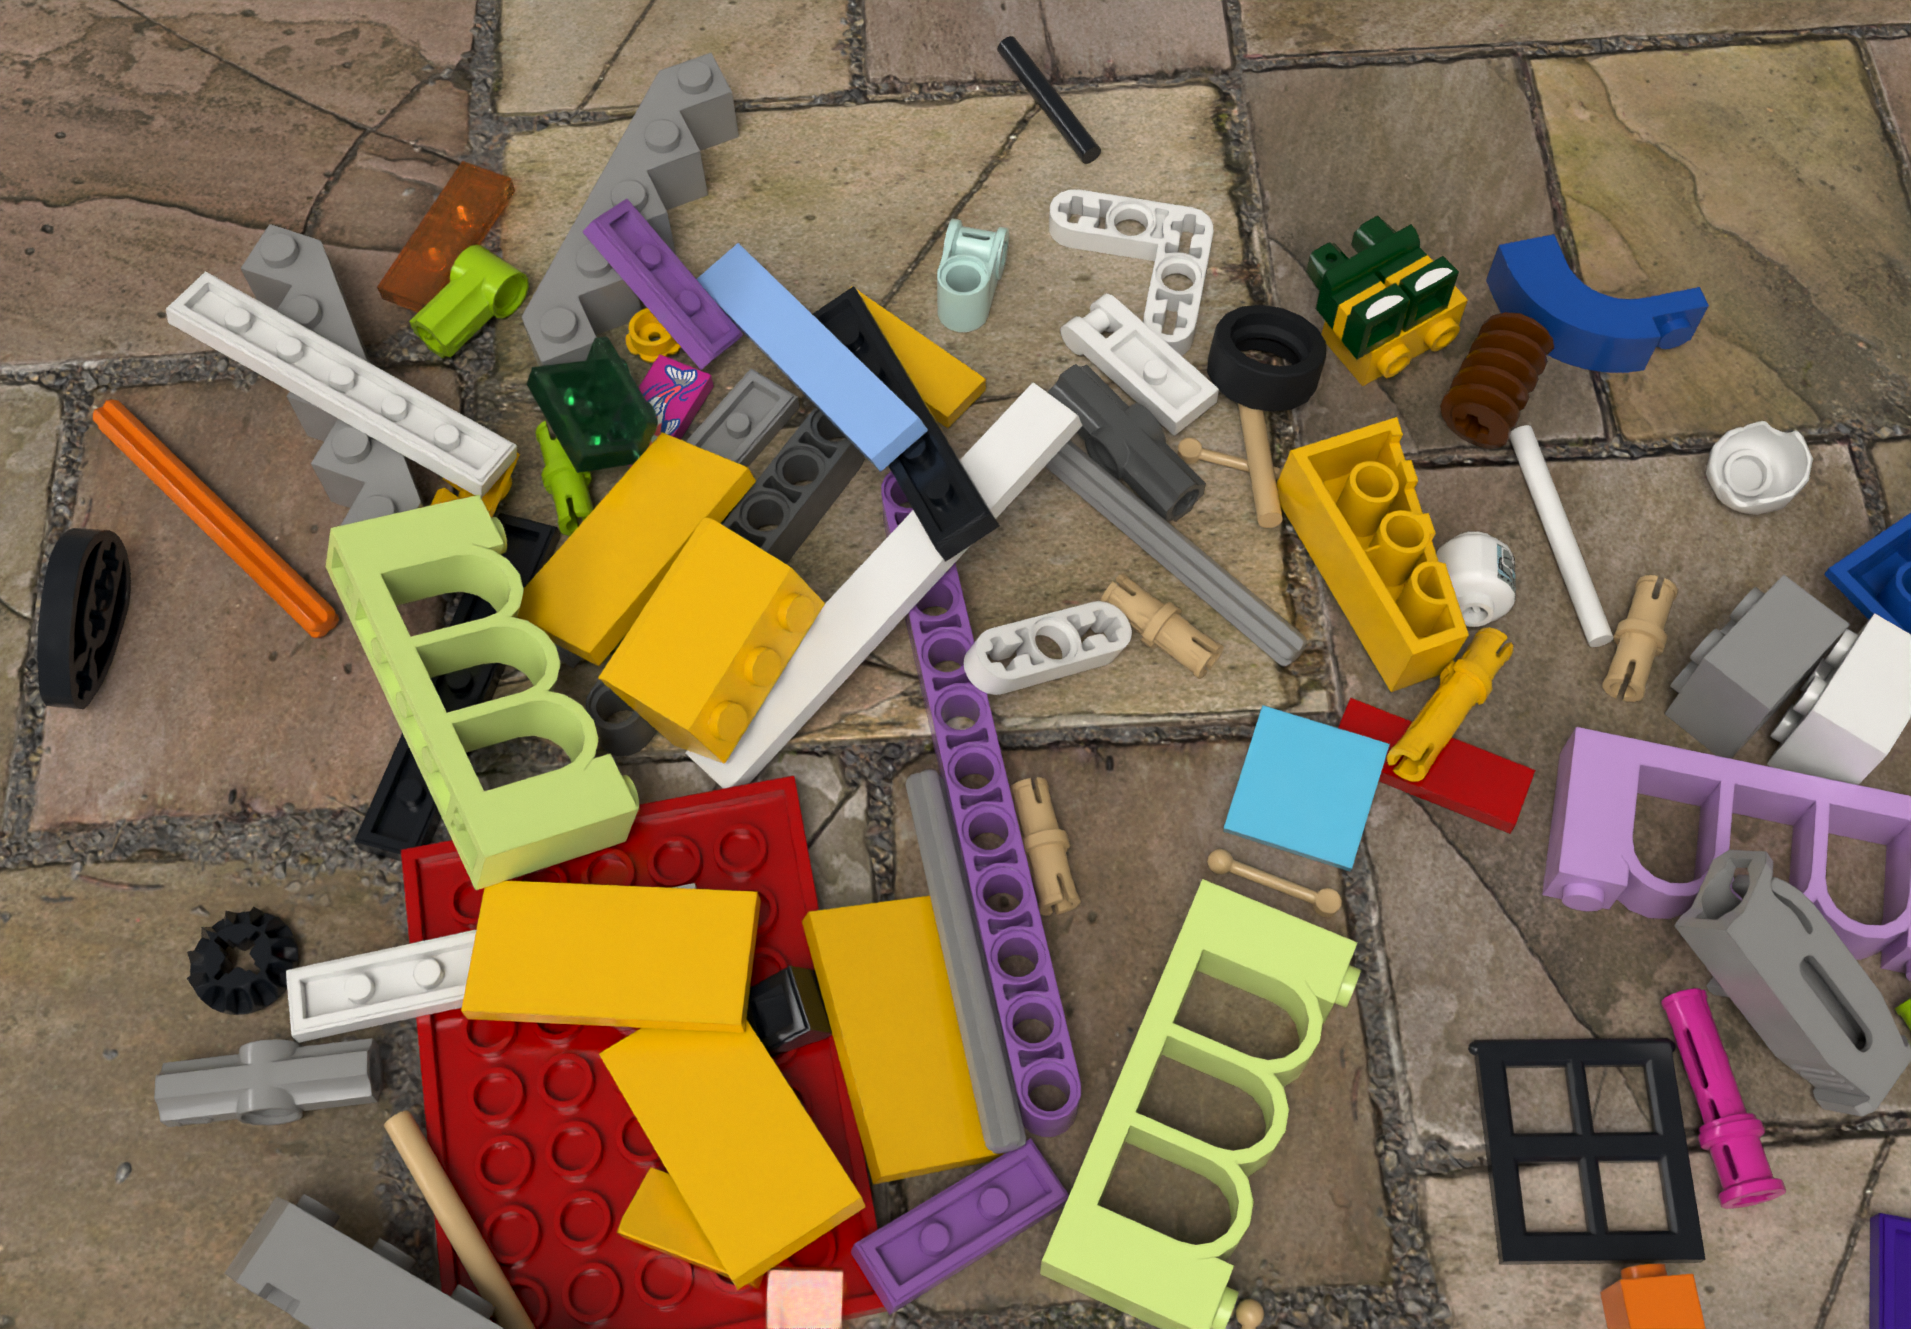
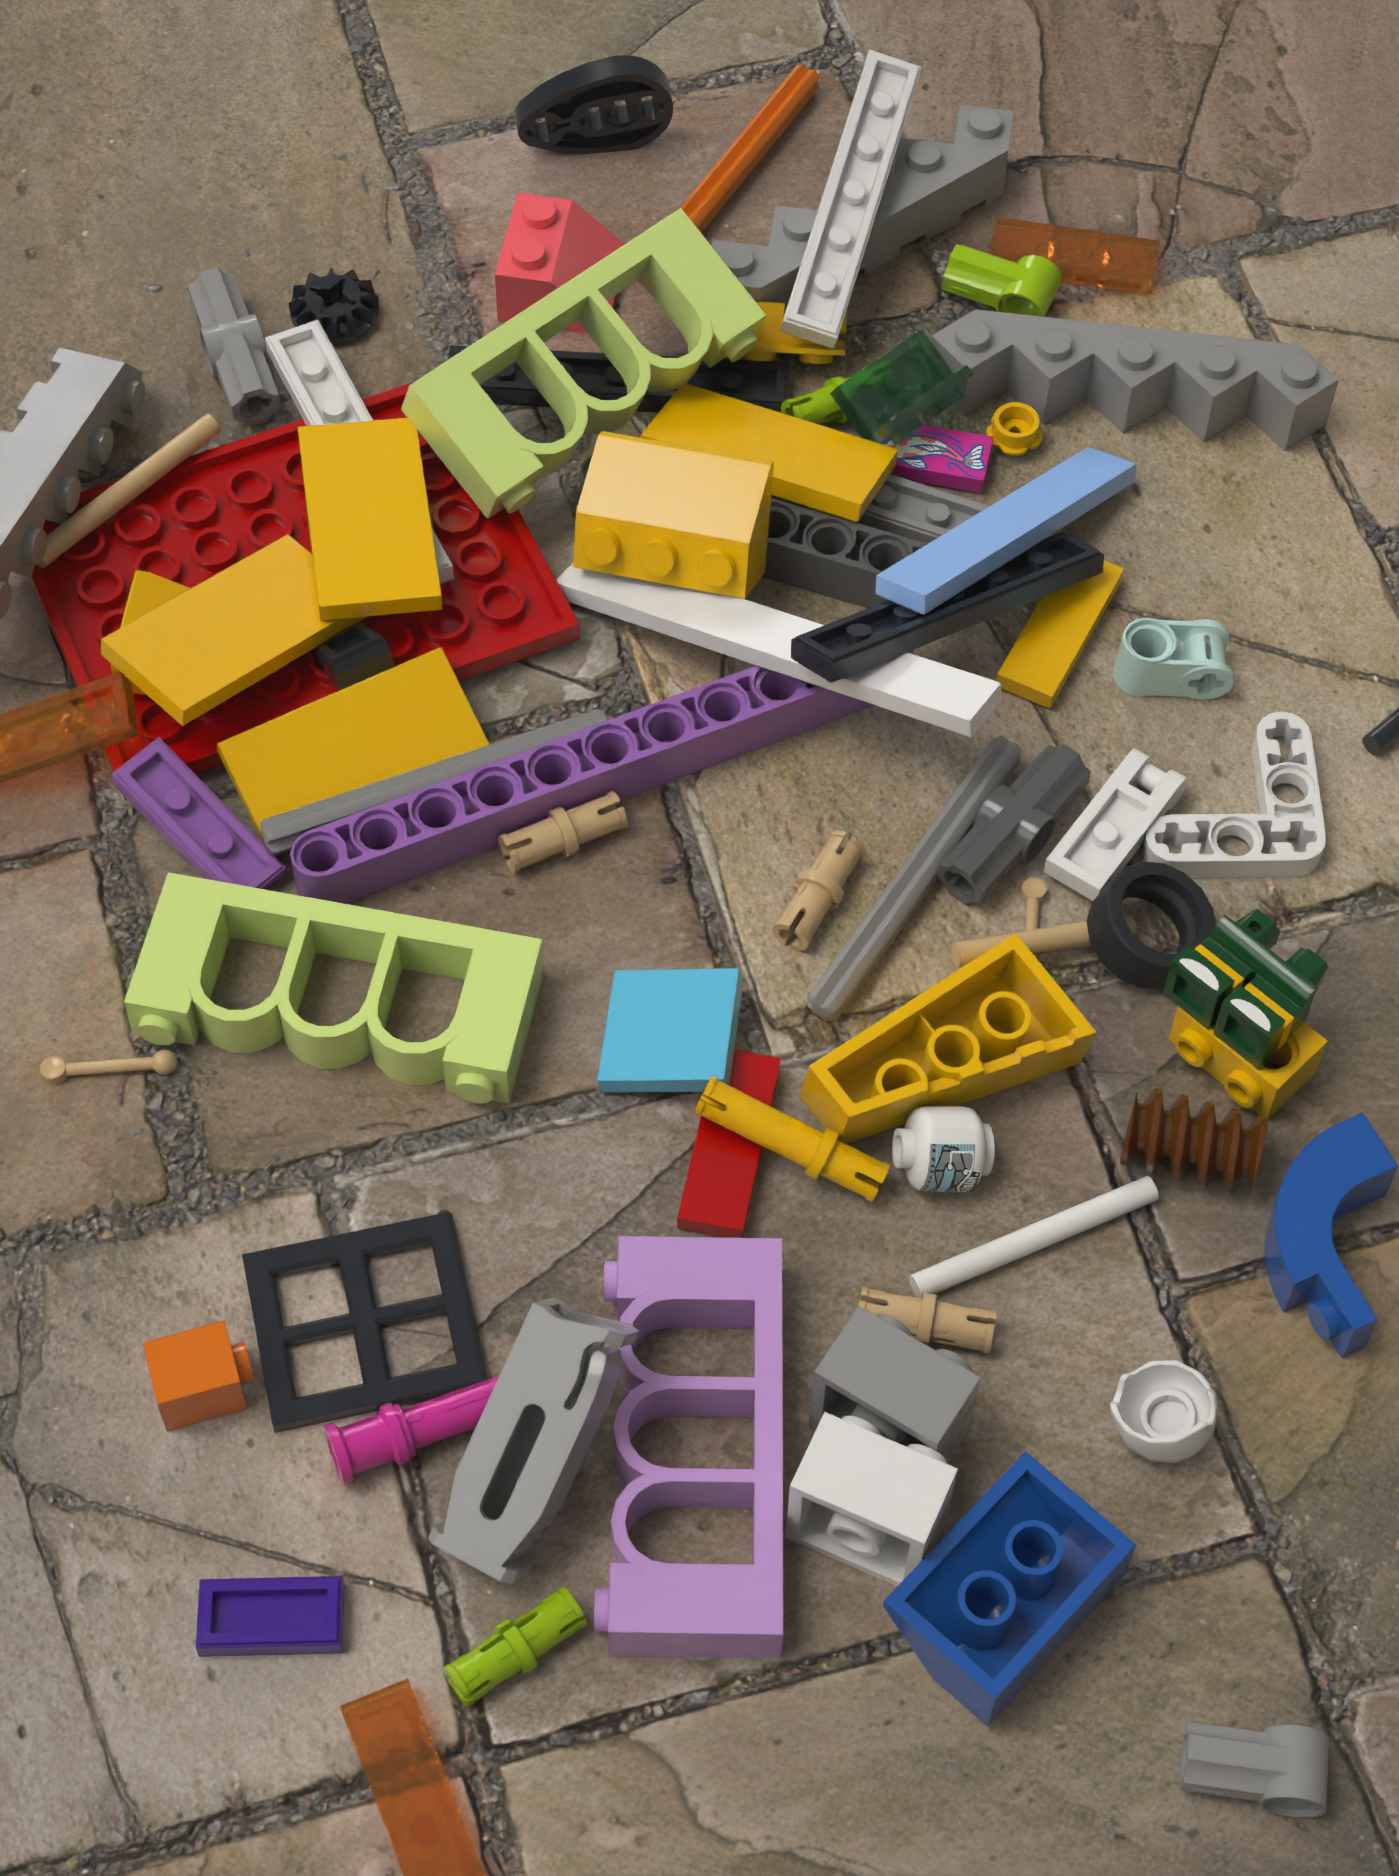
camera: 75 degrees right, 5 degrees down
(286, 709) = (545, 248): none -> coral slope
(662, 283) = (1054, 403): medium lavender tile -> none
(1030, 664) = (761, 761): white beam -> none
(1324, 902) = (565, 1073): tan hinge -> none

